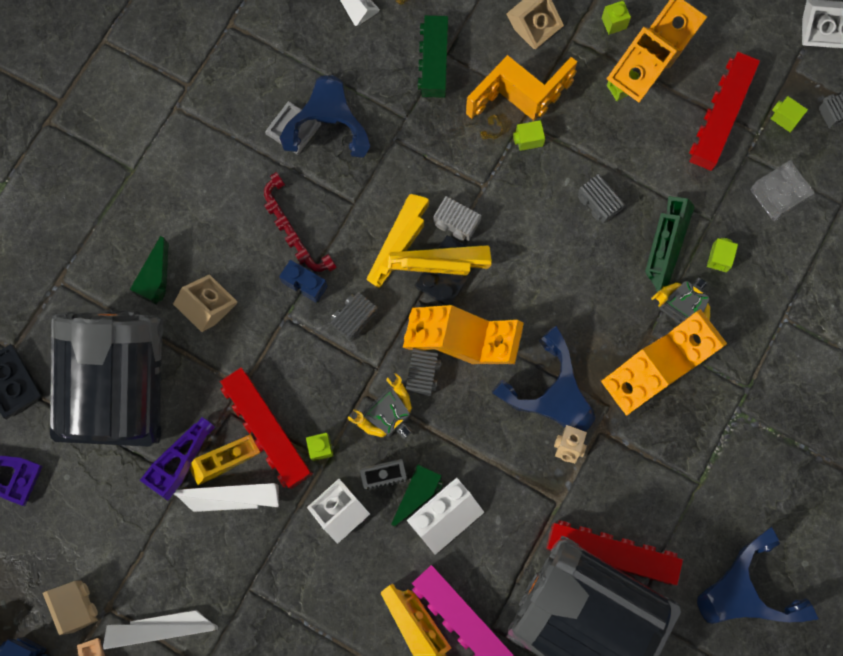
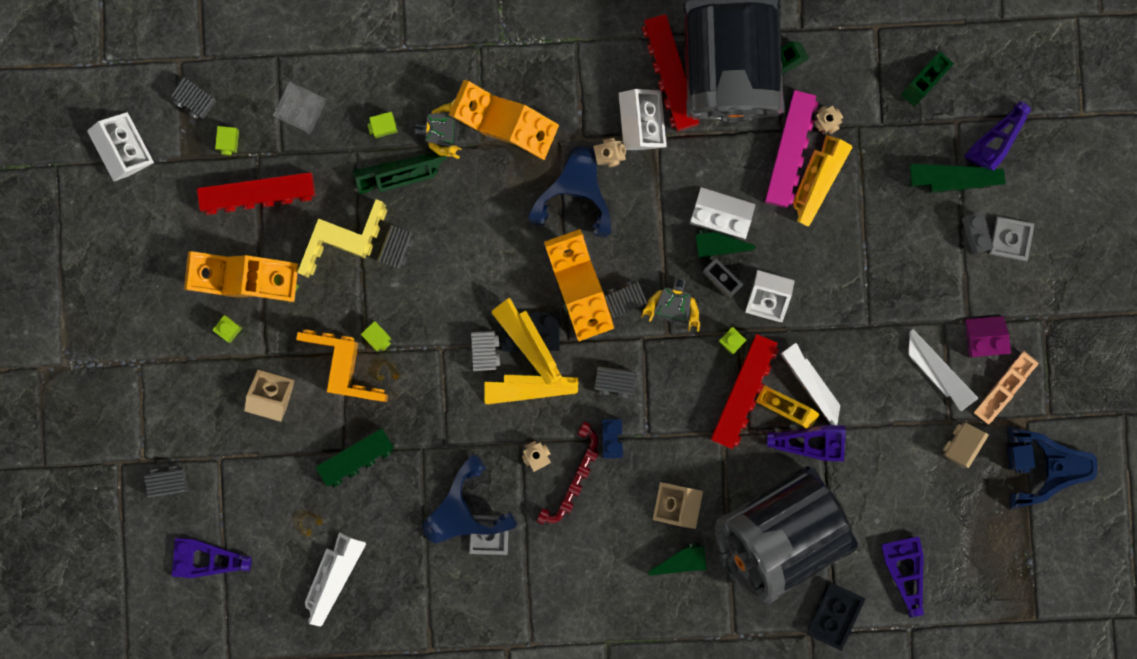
camera: 125 degrees left, 10 degrees up
(332, 205) = (538, 463): none -> tan brick
(584, 497) = (642, 119): none -> white slope
(648, 145) = (342, 239): none -> light yellow bracket

